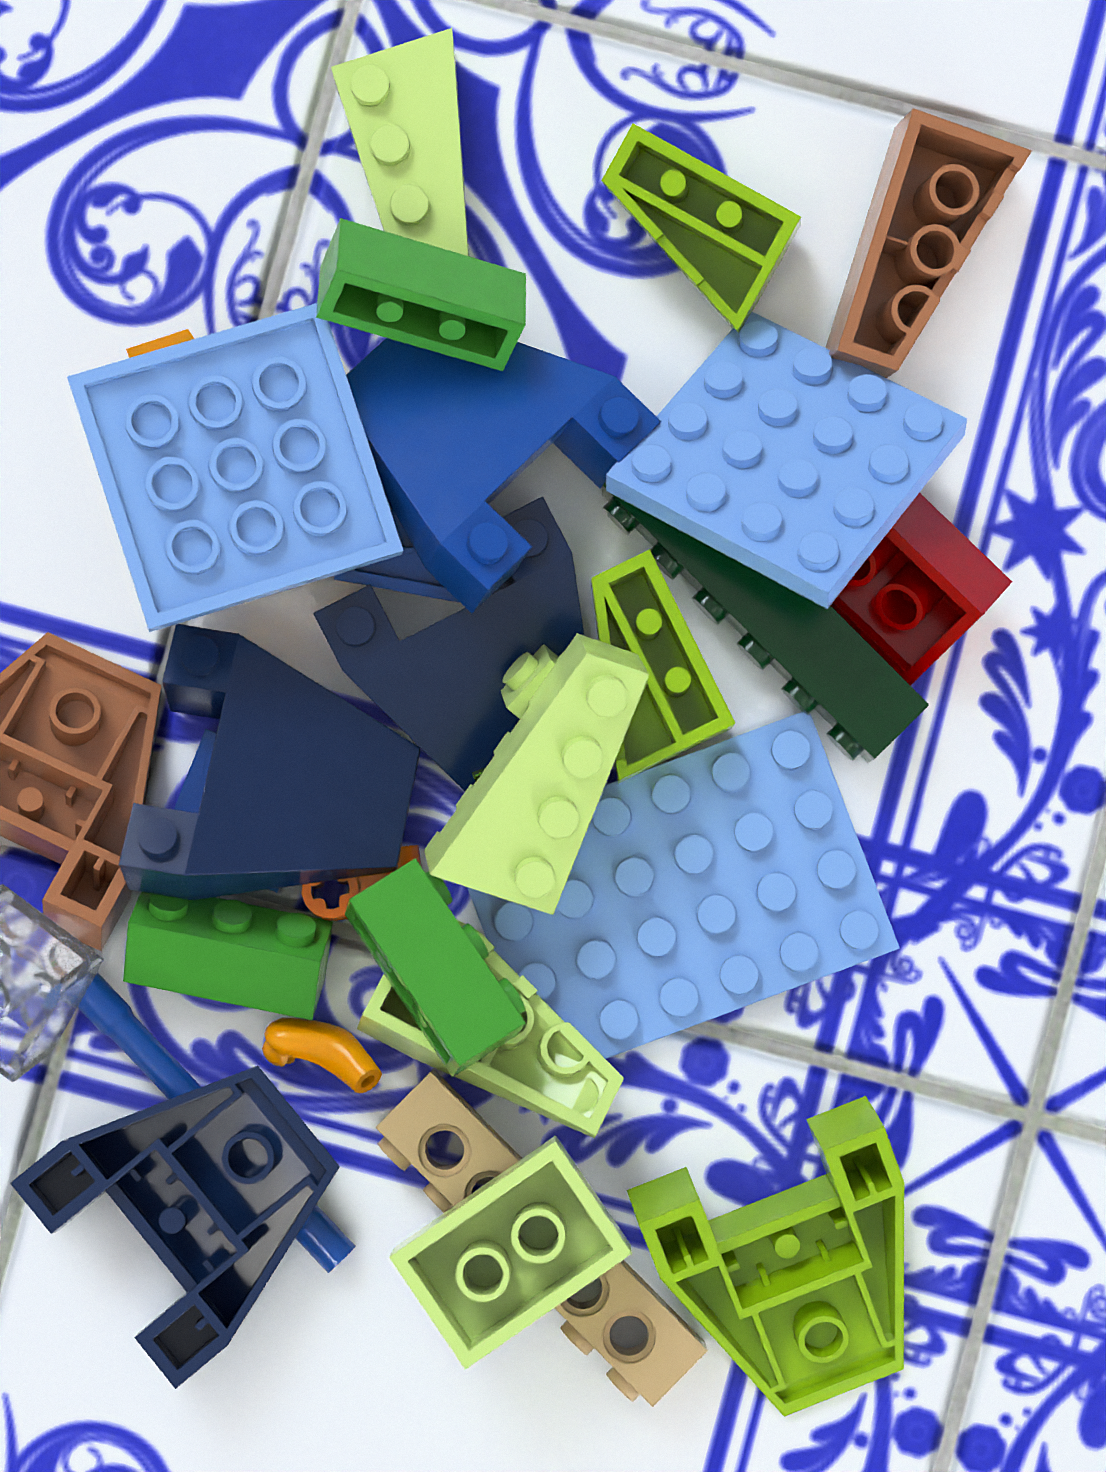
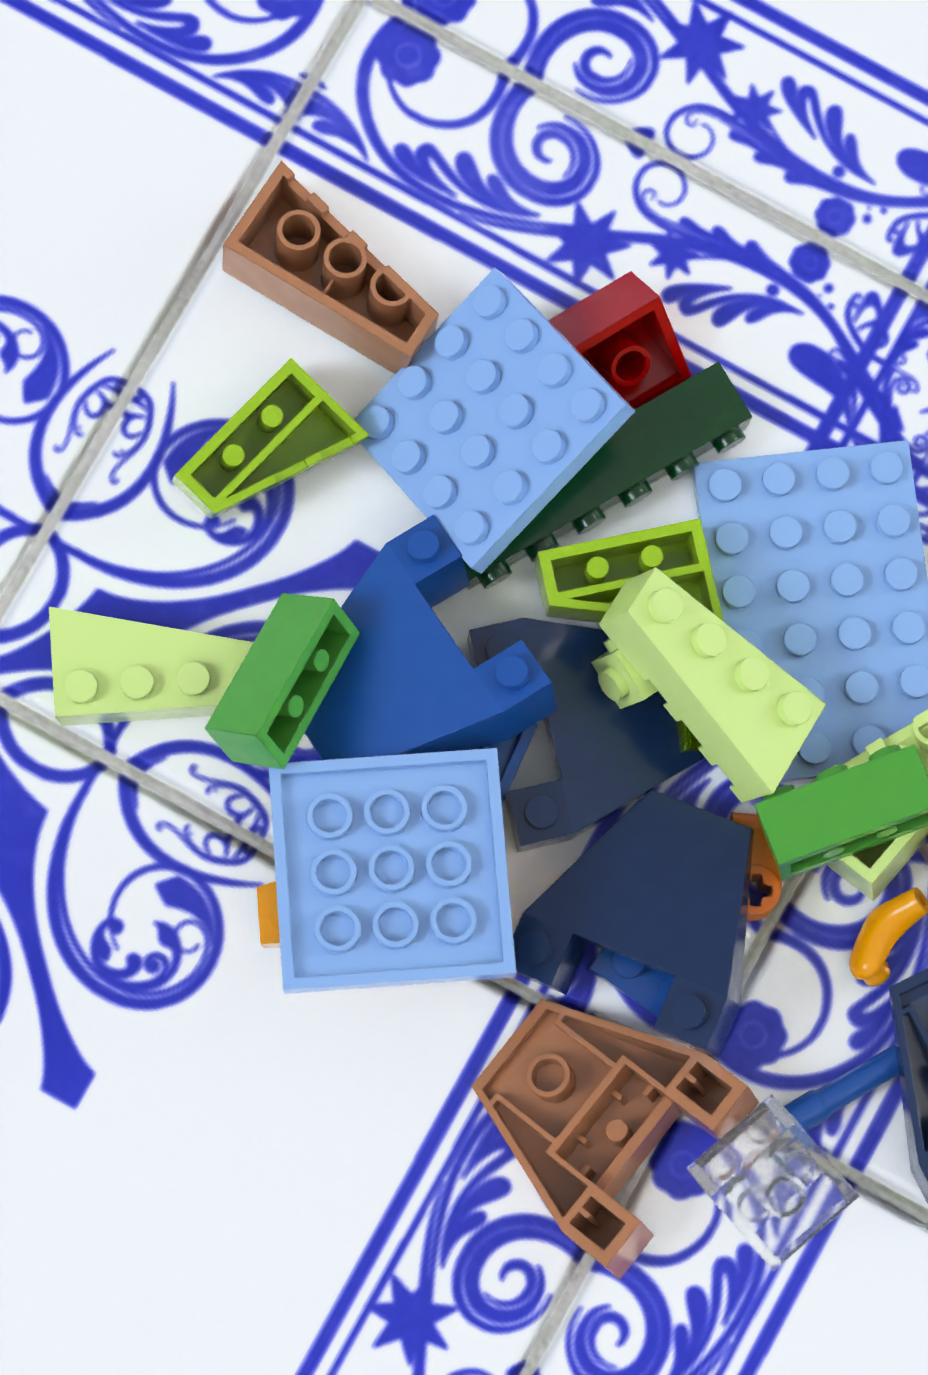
camera: 90 degrees left, 5 degrees down
(228, 952) = (788, 989): bright green brick -> none

